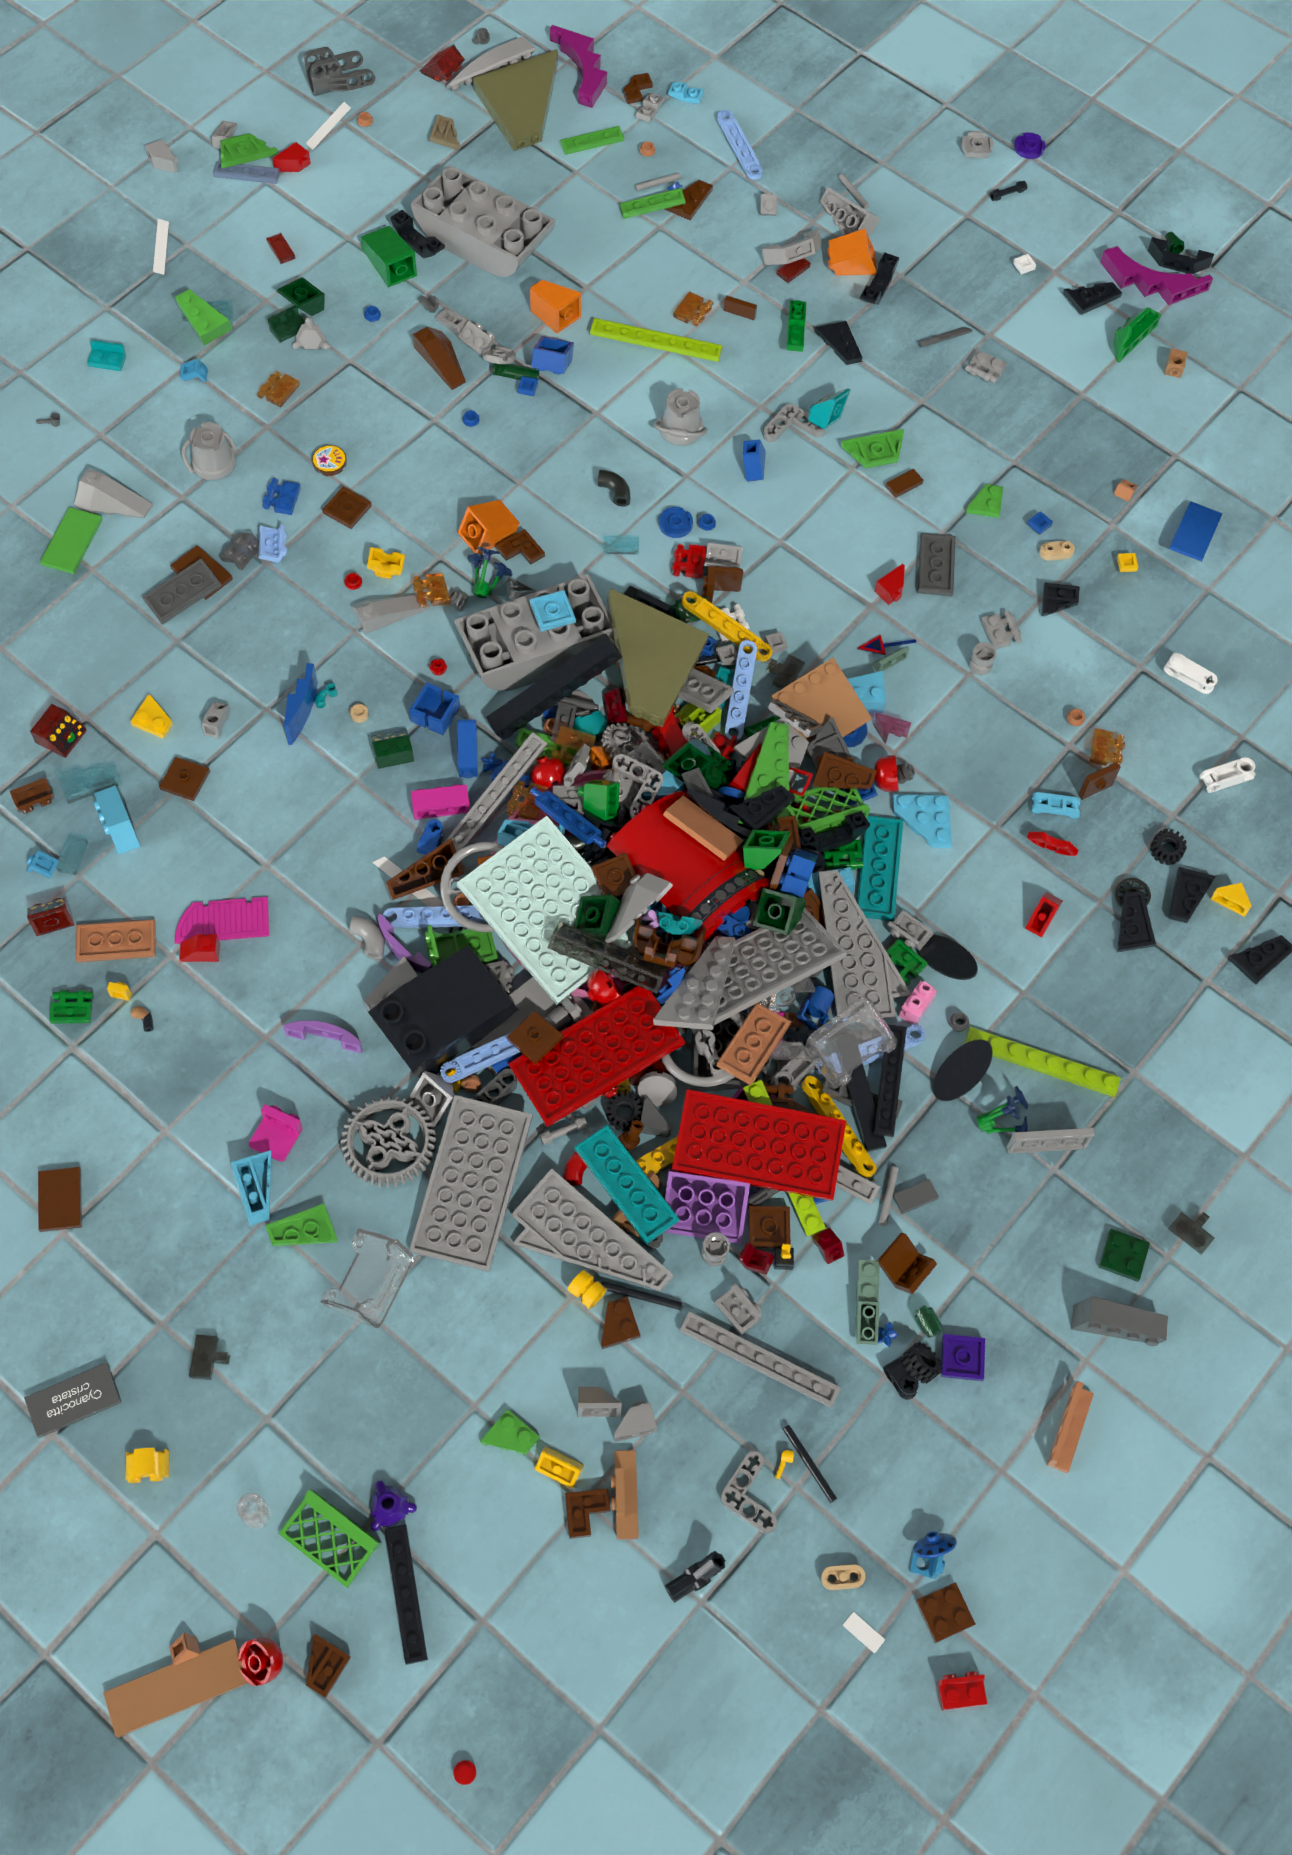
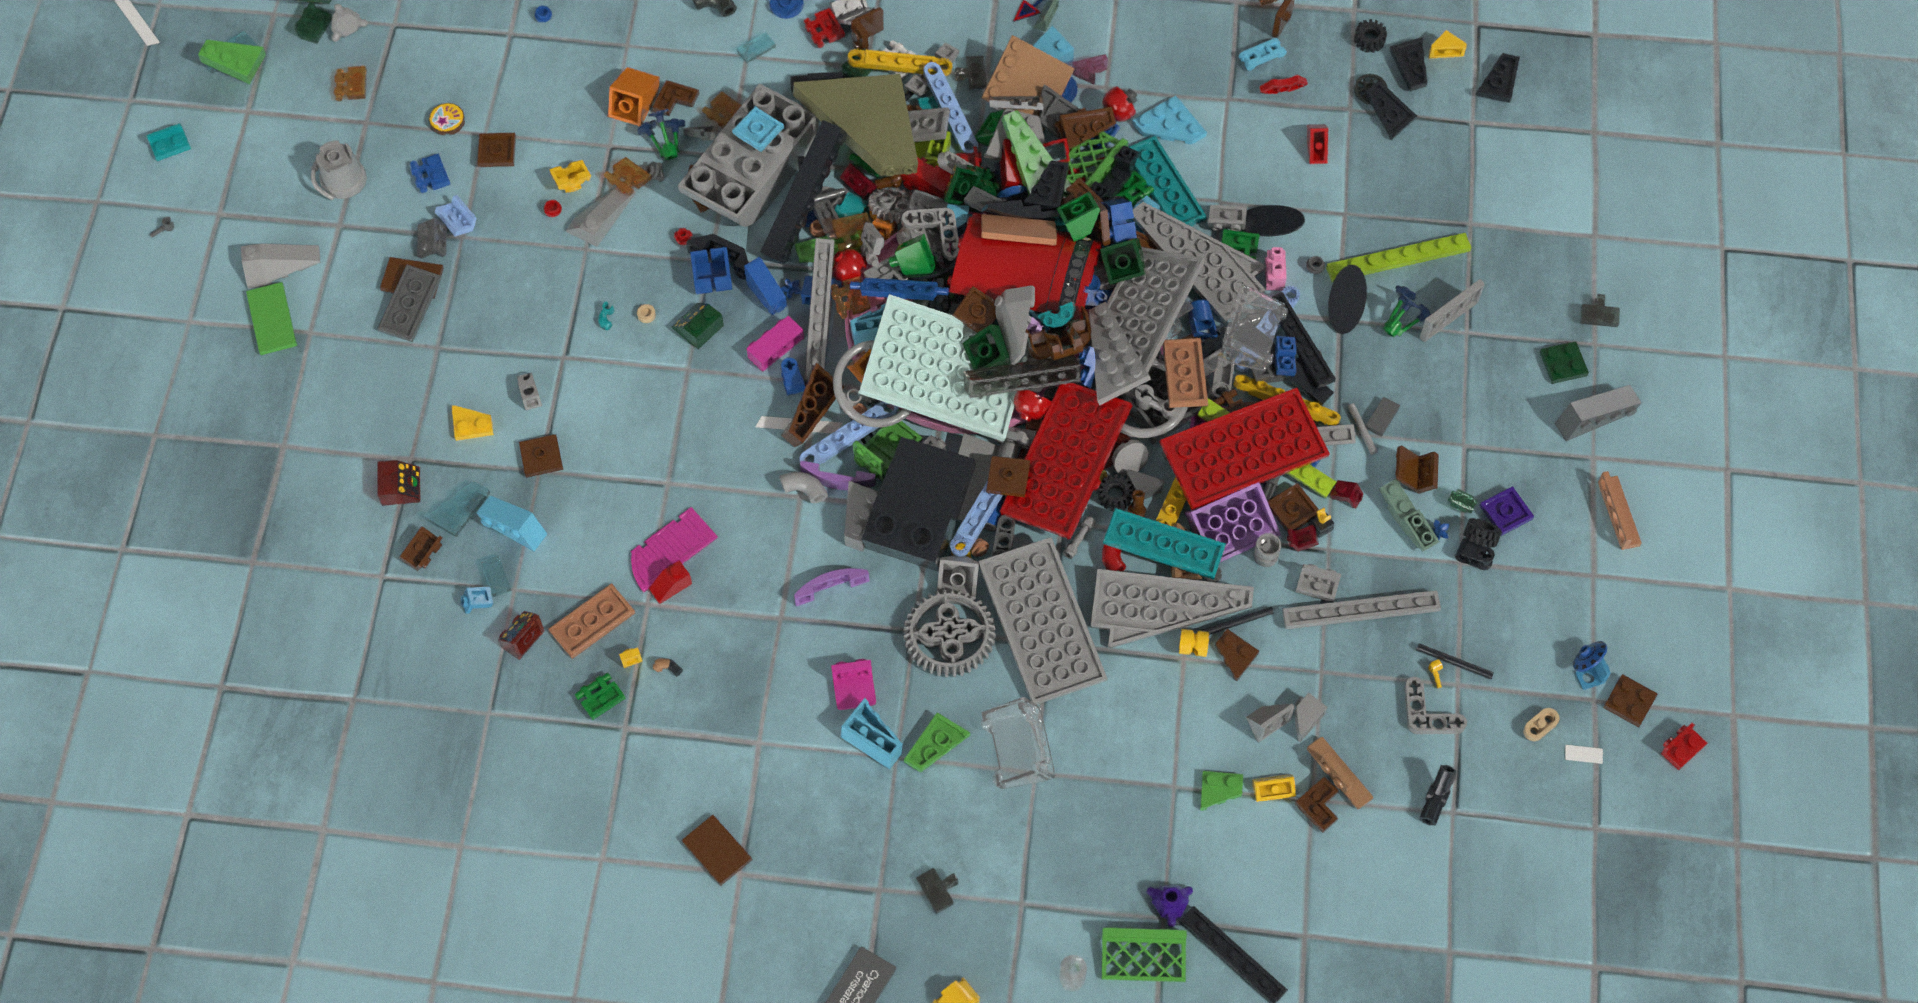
camera: 30 degrees left, 0 degrees up
(194, 369) = (260, 110): dark azure bracket -> none
(300, 704) = (594, 333): blue slope -> none
(456, 686) = (712, 241): none -> black slope
(555, 575) = (721, 104): none -> clear orange plate
(864, 1085) = (1285, 356): none -> blue slope

